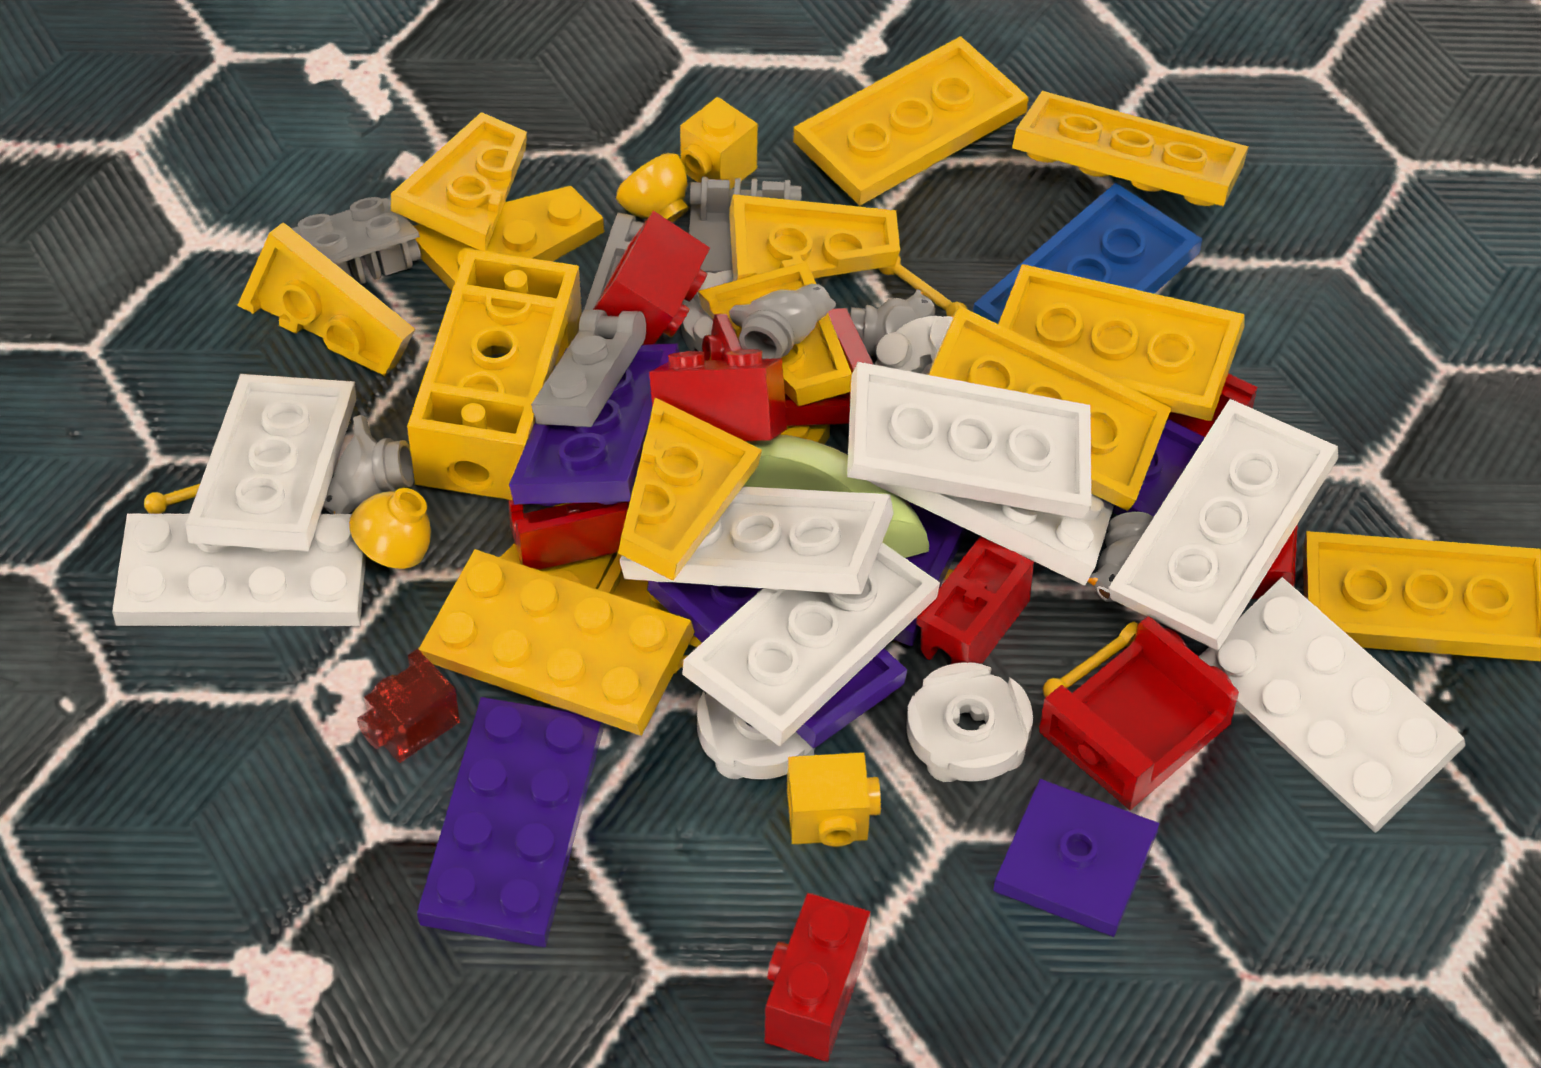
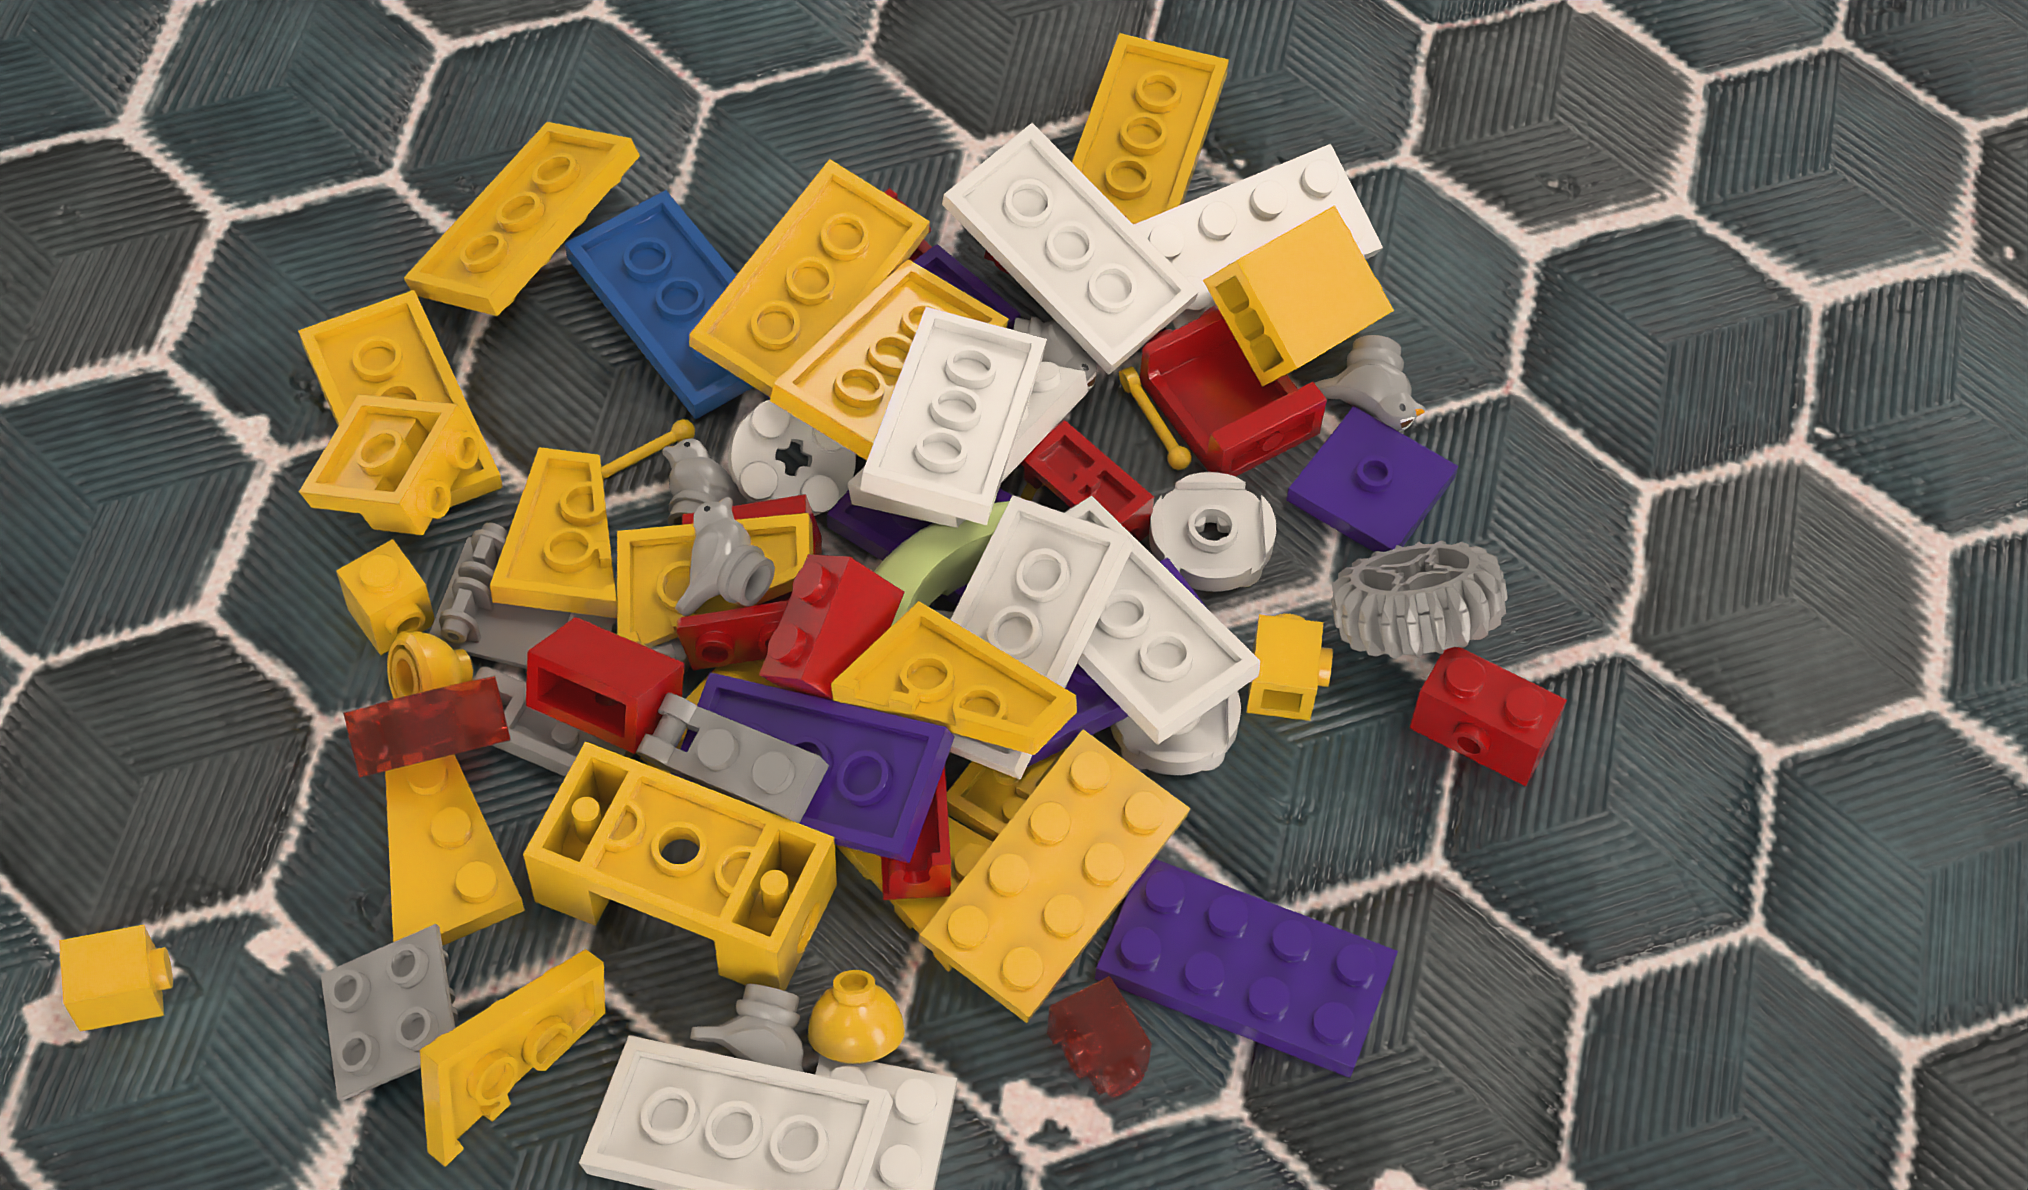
camera: 80 degrees left, 5 degrees up
(345, 67) = (113, 977): none -> yellow brick
(465, 182) = (354, 871): yellow wing -> none
(589, 186) = (427, 726): none -> clear red brick
(831, 110) = (394, 462): none -> yellow plate
(916, 883) = (1419, 599): none -> light grey gear
(1192, 837) = (1375, 382): none -> light grey animal
(1255, 733) = (1298, 295): none -> yellow brick

